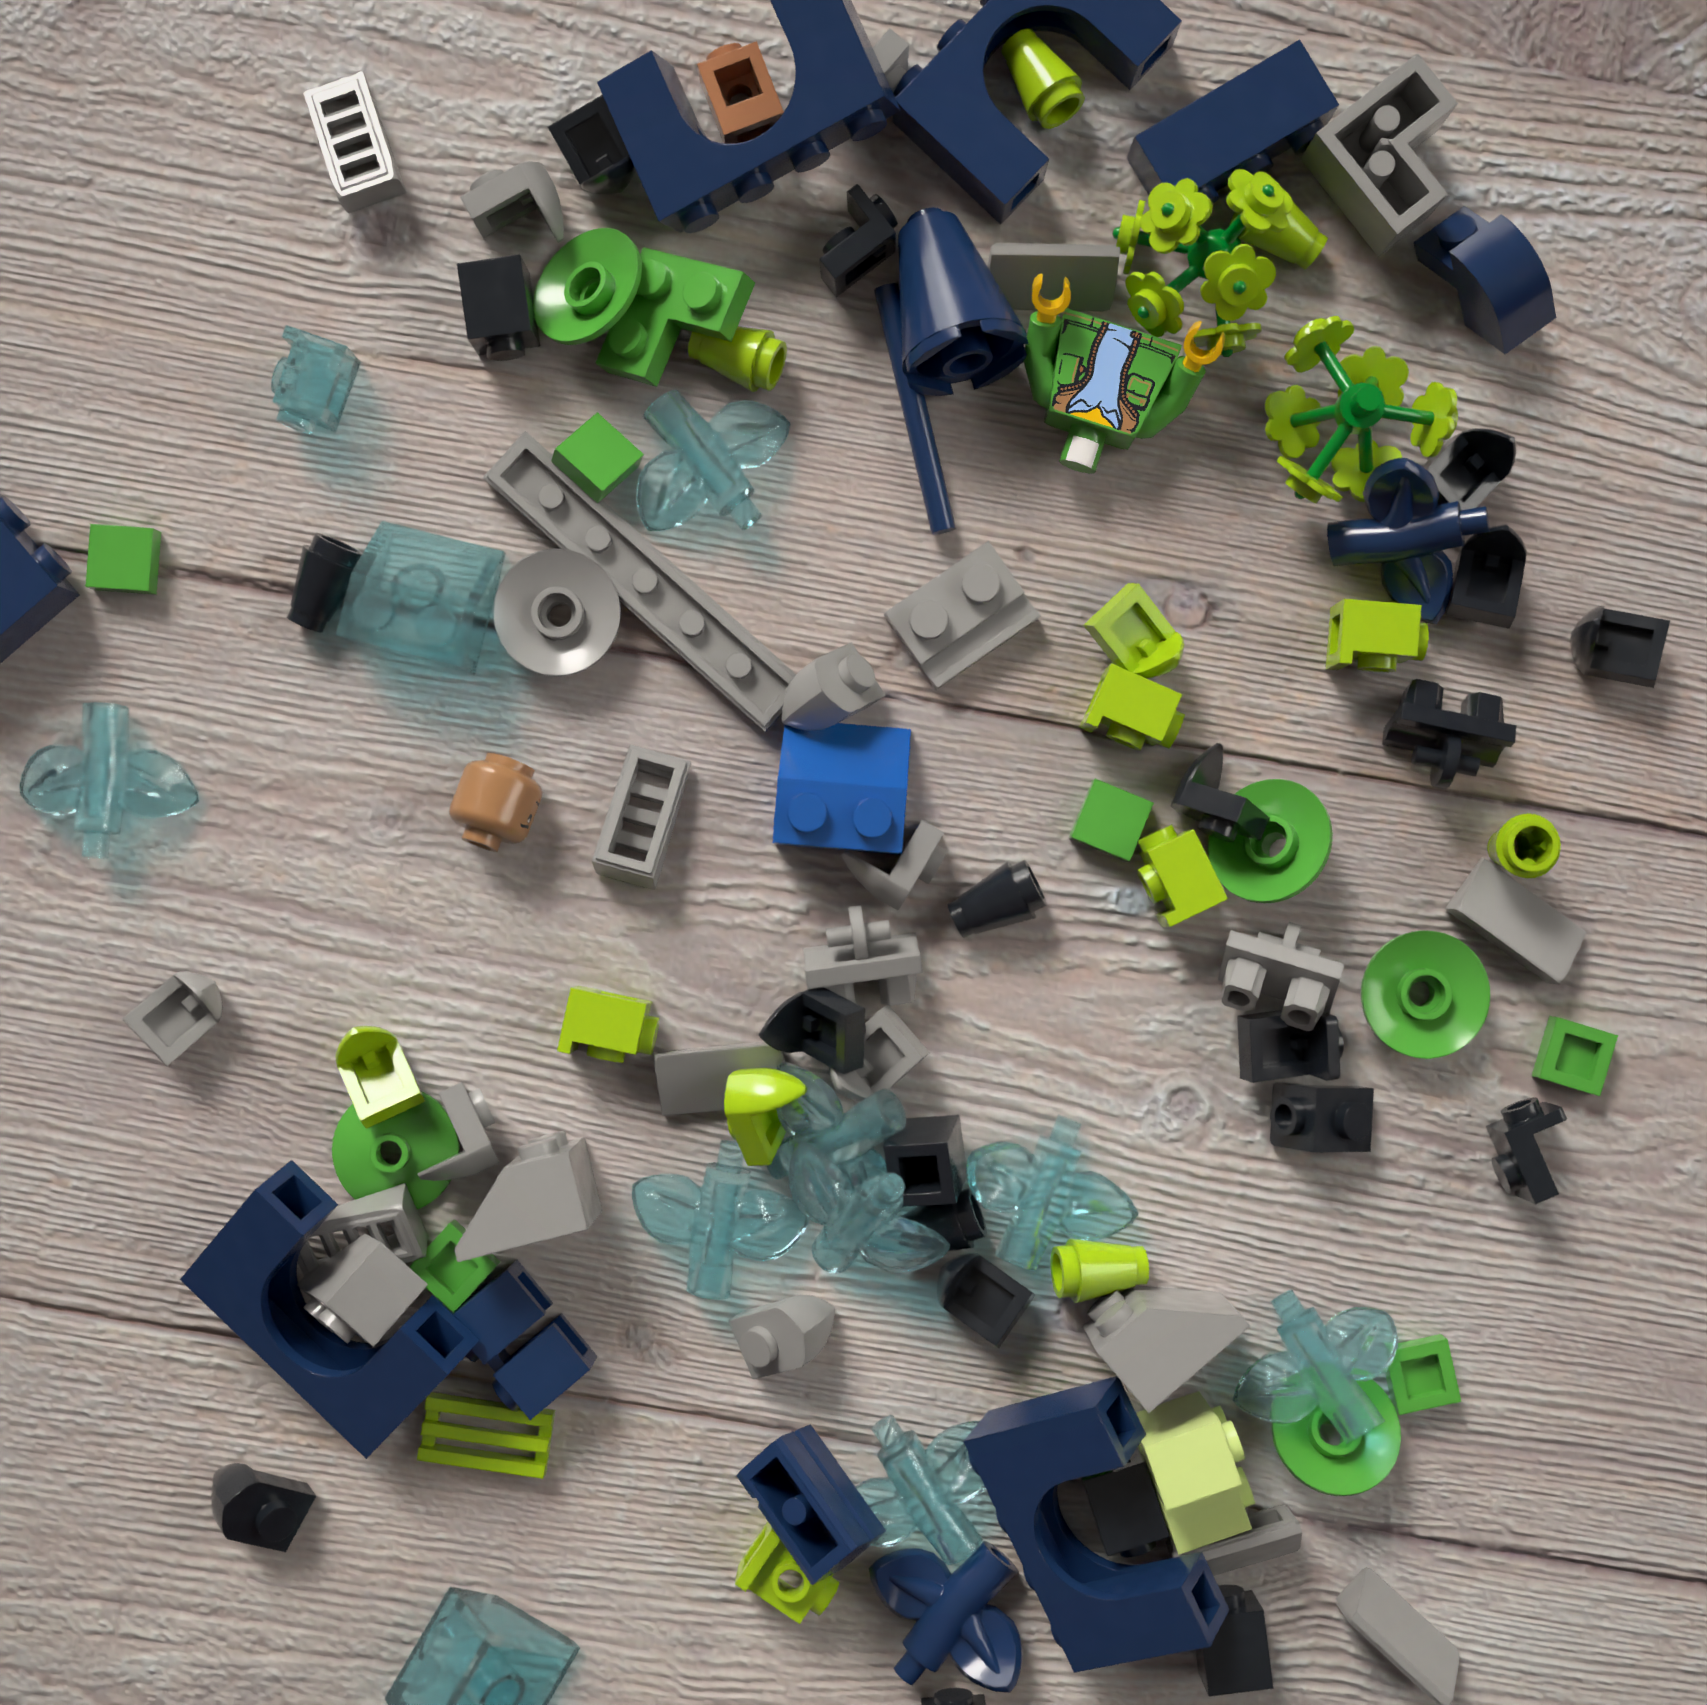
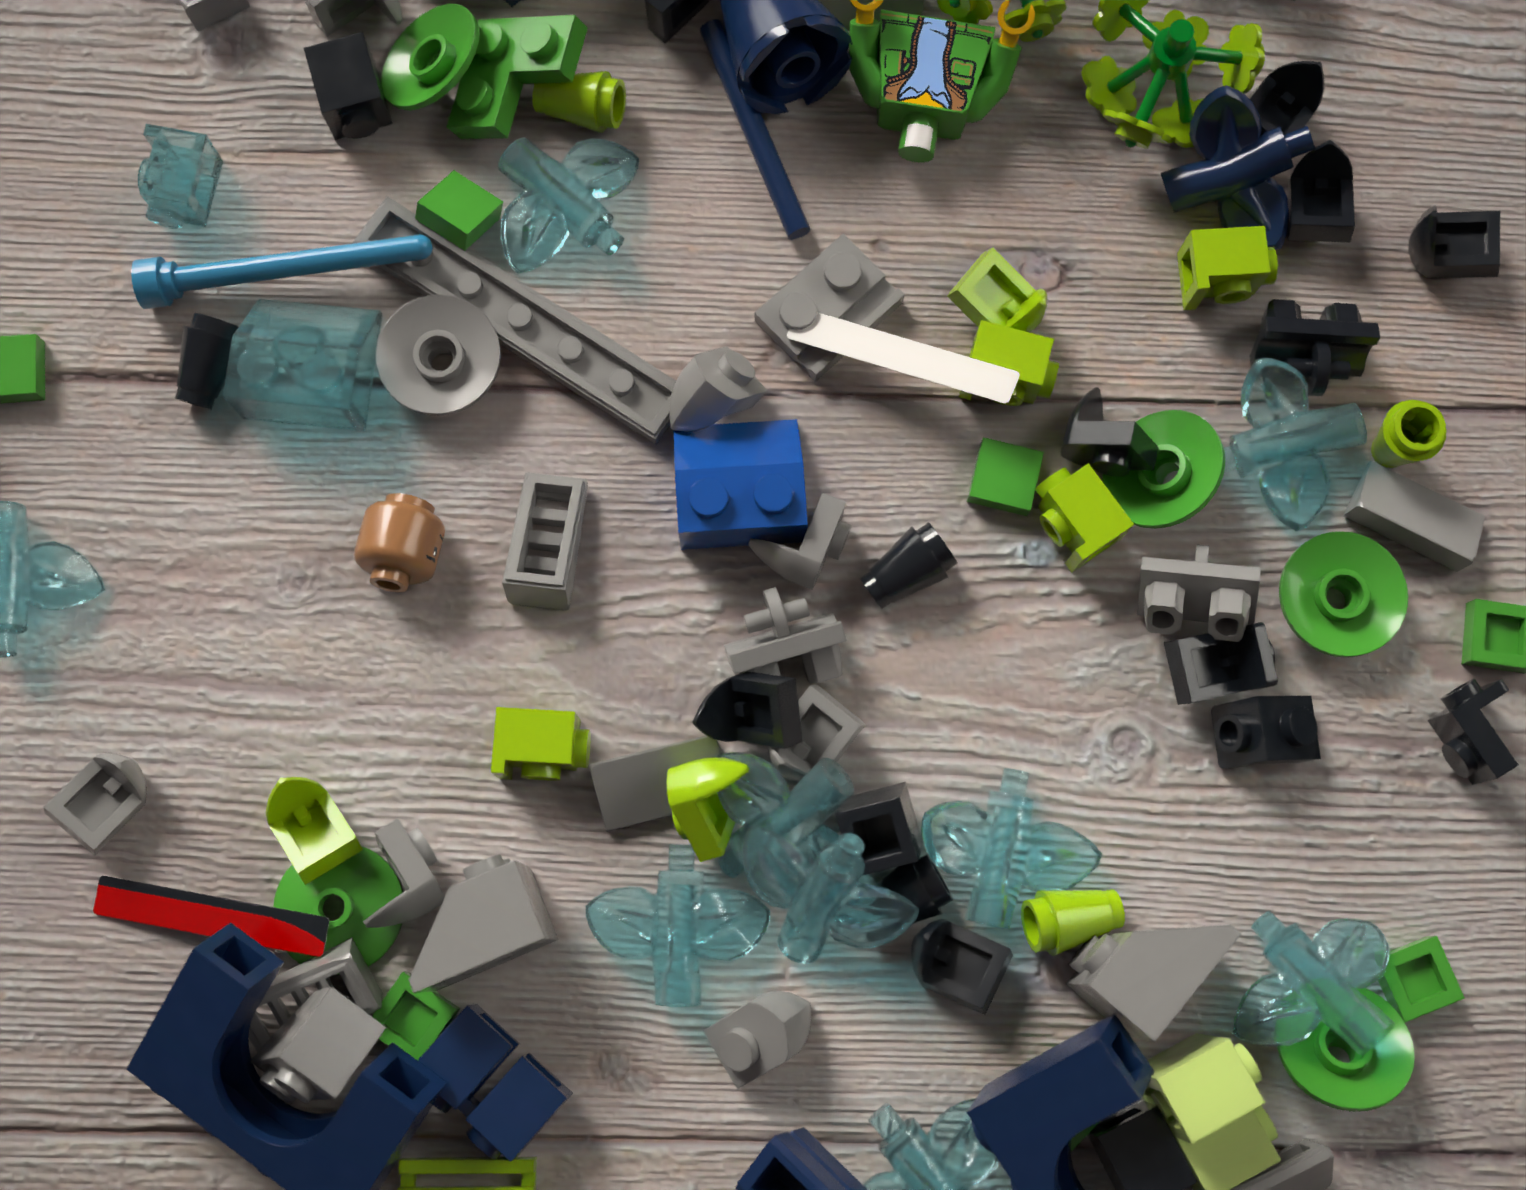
camera: 10 degrees left, 10 degrees down
(272, 1141) = (209, 914): none -> red sticker
(284, 491) = (160, 282): none -> dark azure piece
(1031, 690) = (909, 357): none -> white sticker
(1402, 830) = (1287, 441): none -> clear light blue plant

